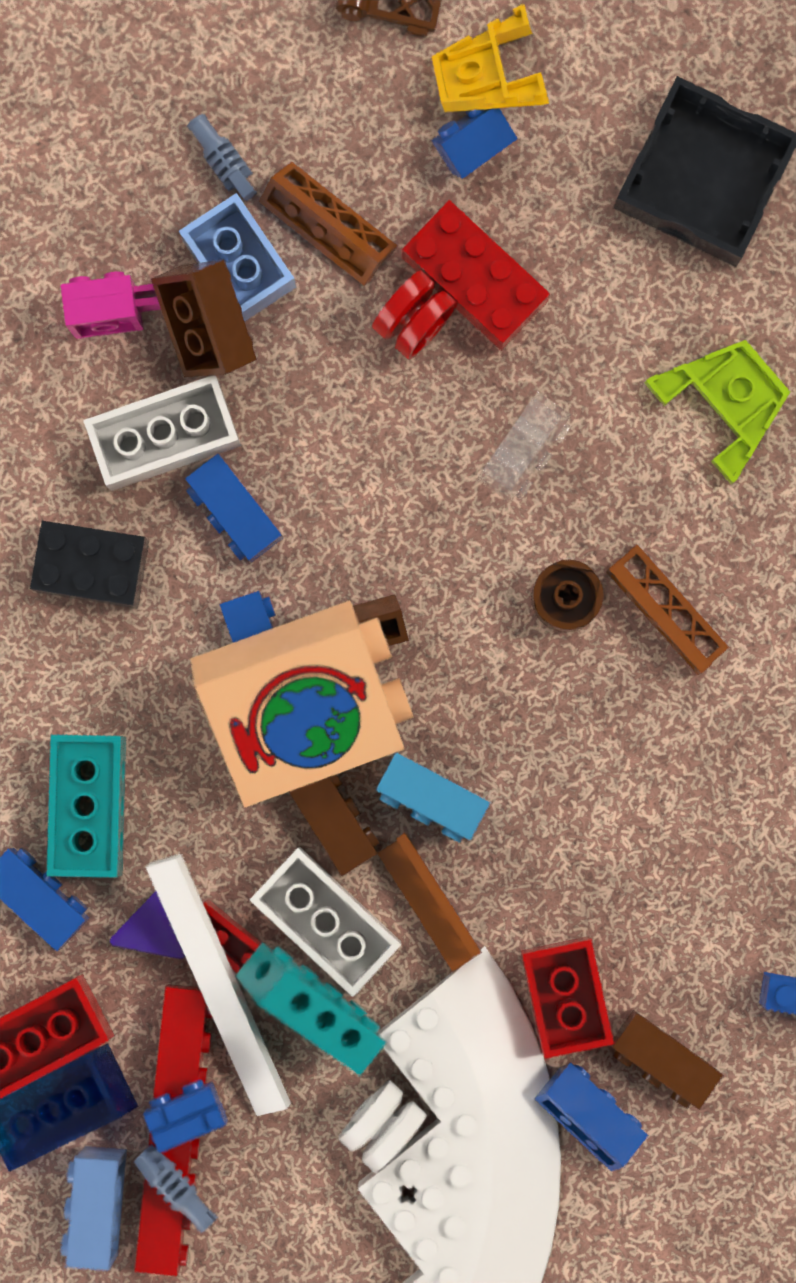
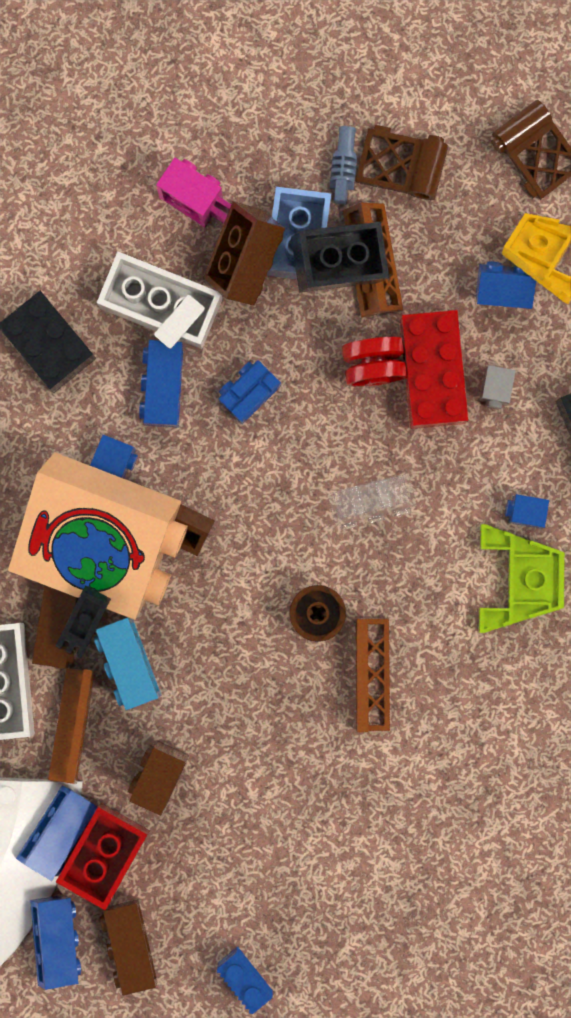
camera: 30 degrees right, 0 degrees up
(199, 435) = (179, 321): none -> white sticker
(297, 243) = (339, 257): none -> black brick
(301, 95) = (424, 166): none -> reddish brown piece
(321, 445) = (249, 391): none -> blue brick
(357, 792) = (83, 621): none -> black hinge
(505, 1013) = (57, 833): none -> brick
(548, 240) = (497, 386): none -> light grey brick
(556, 877) = (159, 777): none -> reddish brown brick
(678, 331) = (527, 511): none -> blue brick

